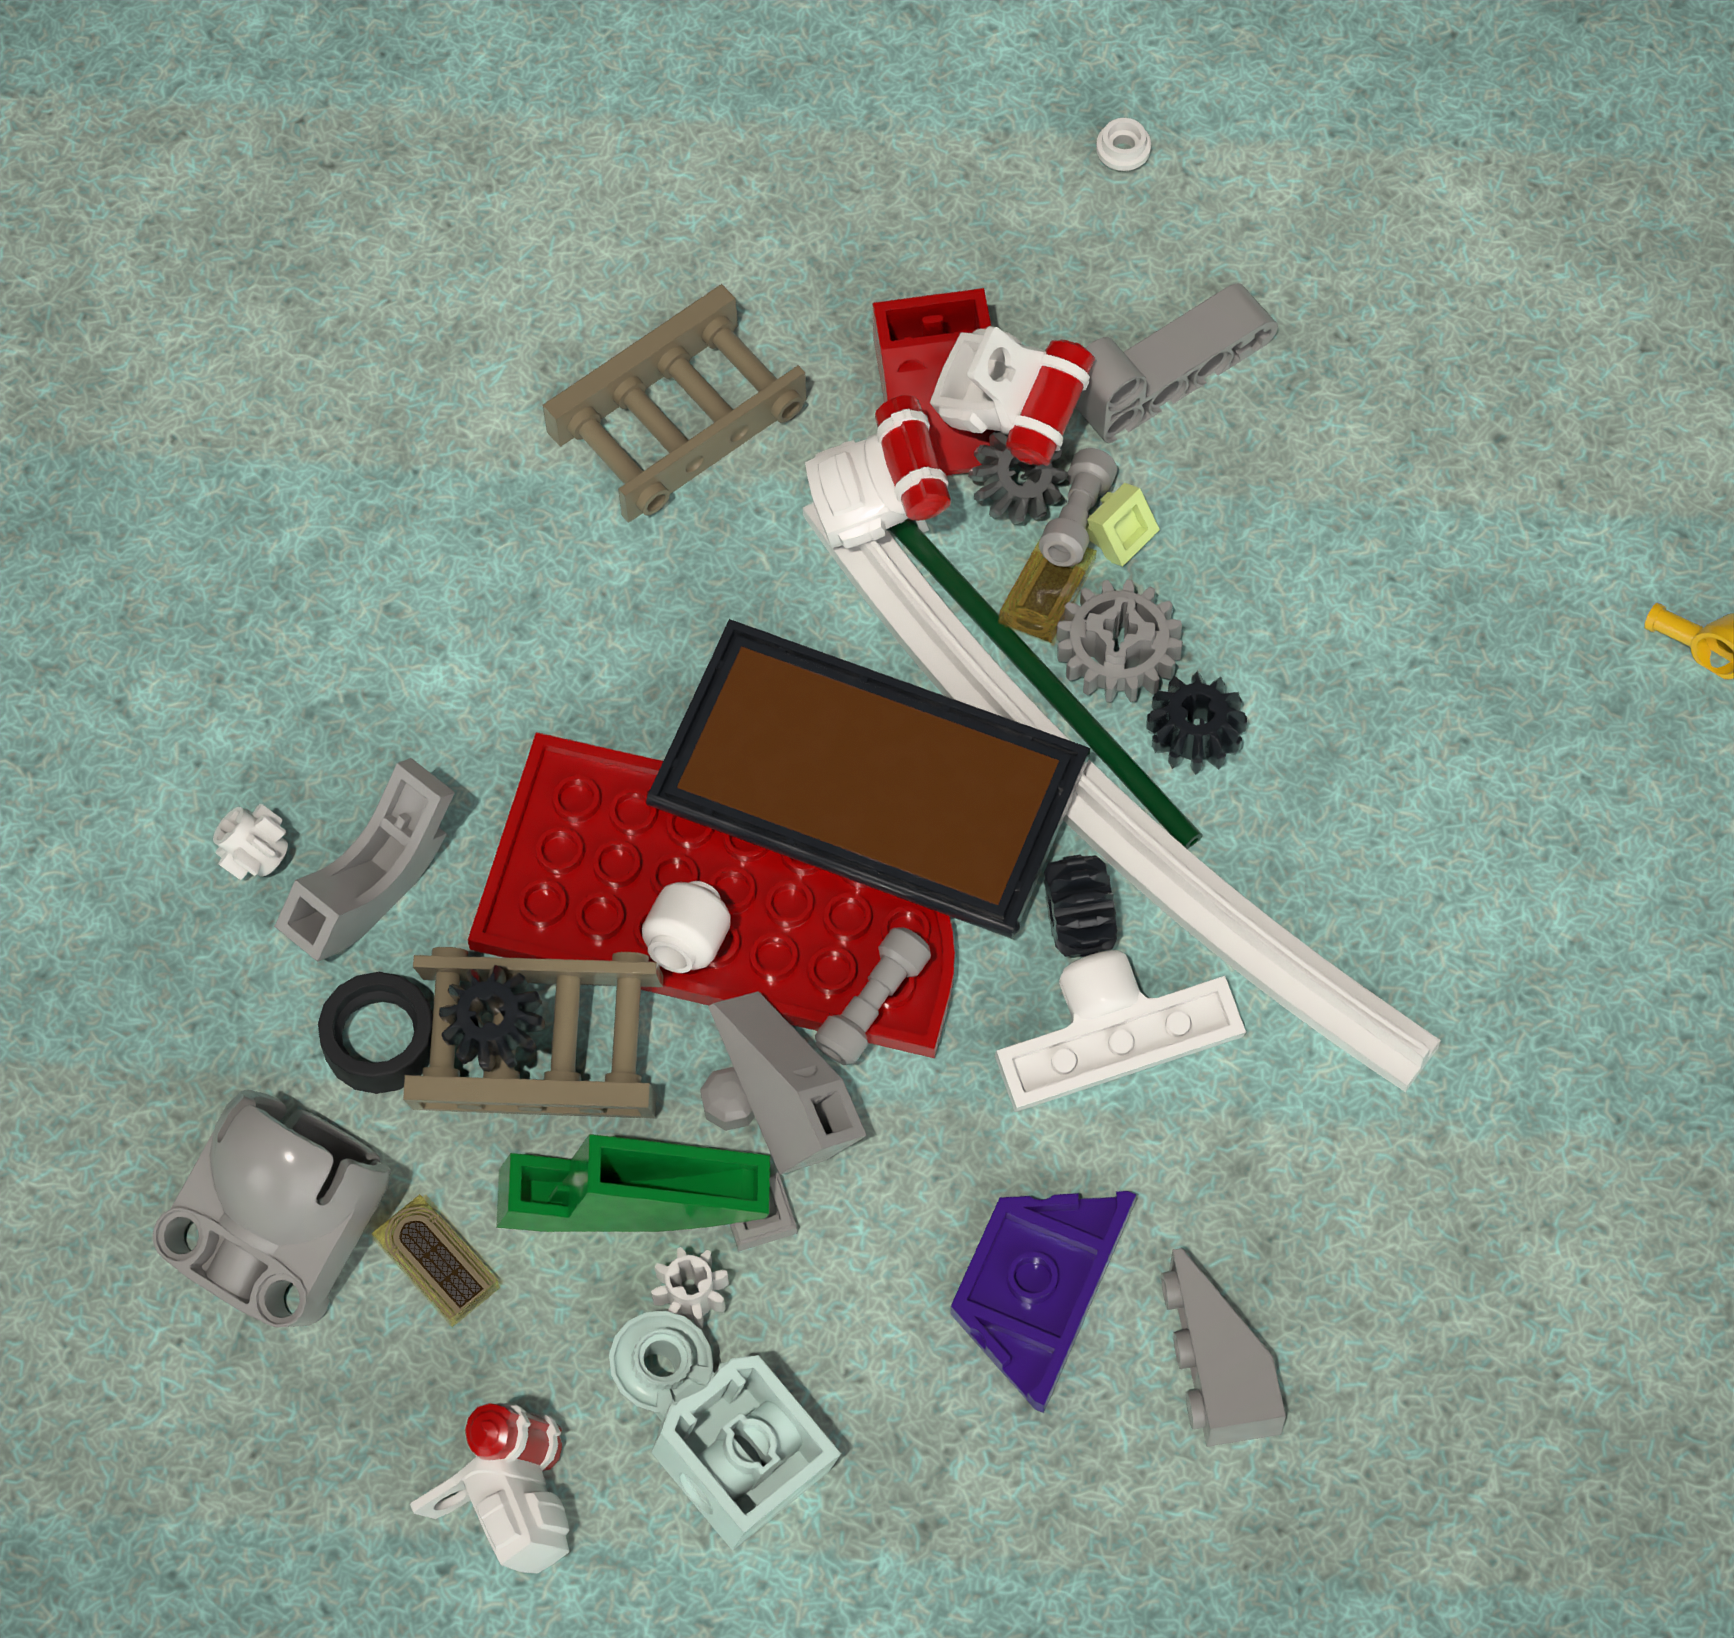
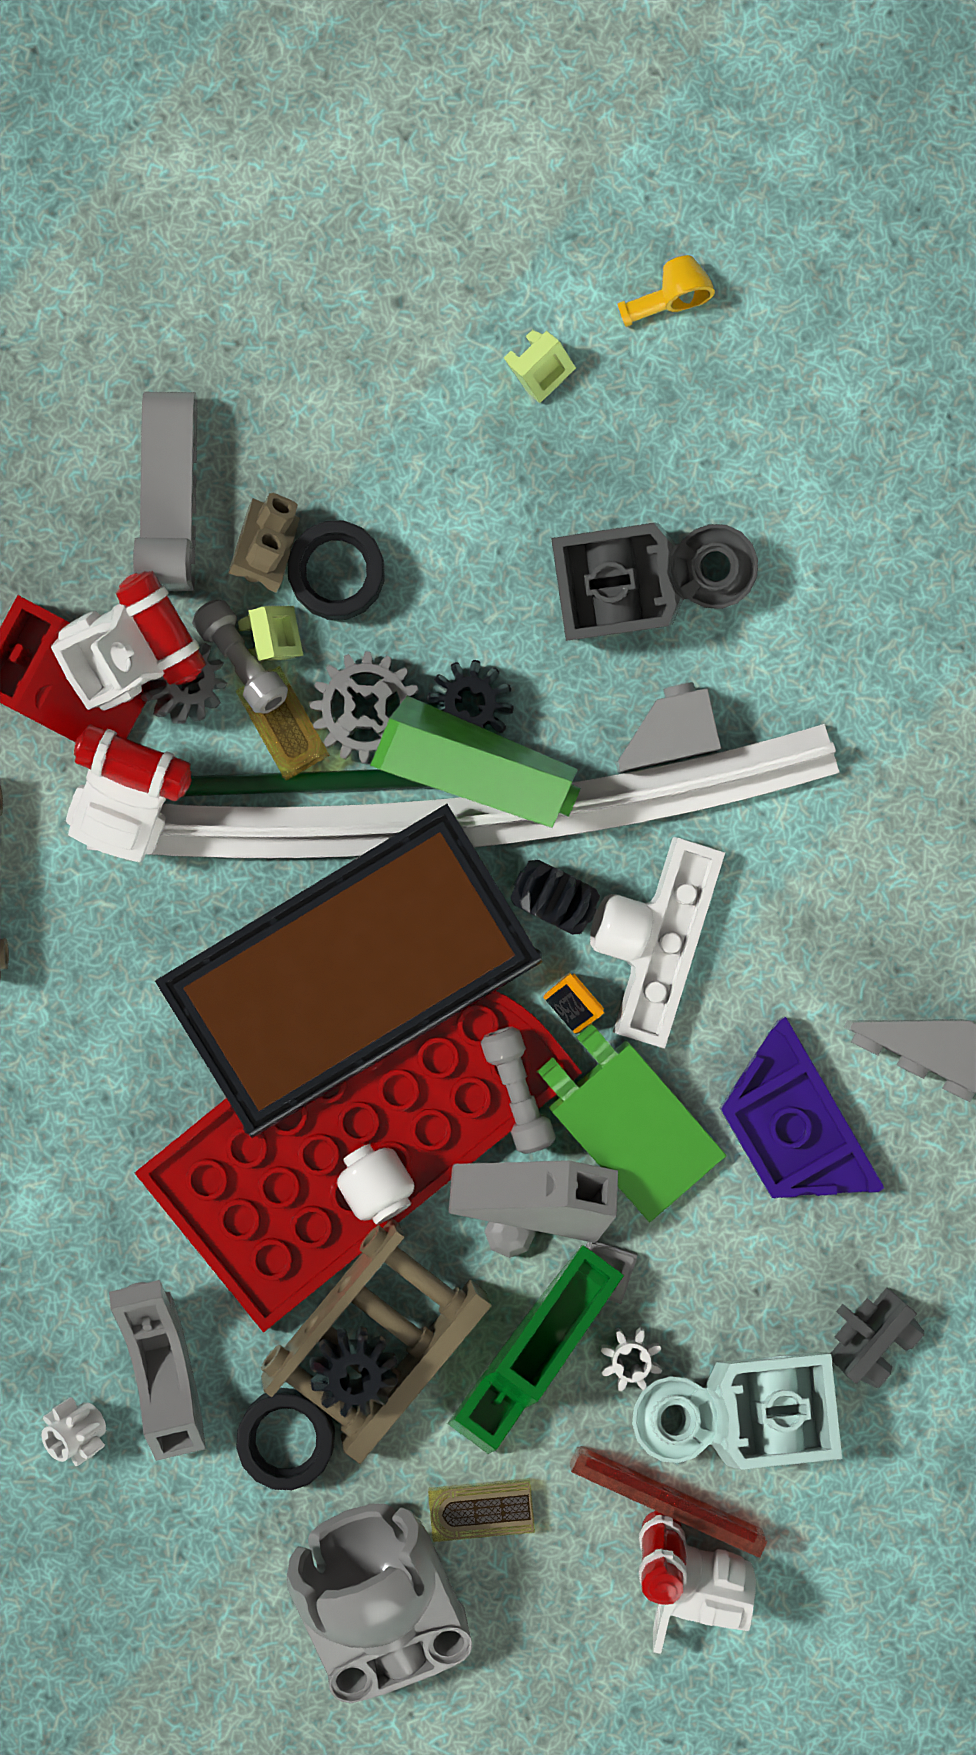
camera: 60 degrees left, 25 degrees up
(574, 1422) = (668, 1501): none -> clear red tile
(917, 1509) = (870, 1334): none -> dark grey hips
(922, 1128) = (632, 1124): none -> bright green tile
(996, 1002) = (574, 1003): none -> slope
(1144, 731) = (474, 764): none -> bright green slope
(1197, 458) = (266, 541): none -> dark tan hips
(1220, 575) = (336, 531): none -> black tyre
(1317, 905) = (673, 730): none -> light grey slope
(1432, 778) = (640, 576): none -> dark grey brick
(1547, 577) = (541, 365): none -> yellowish green tile

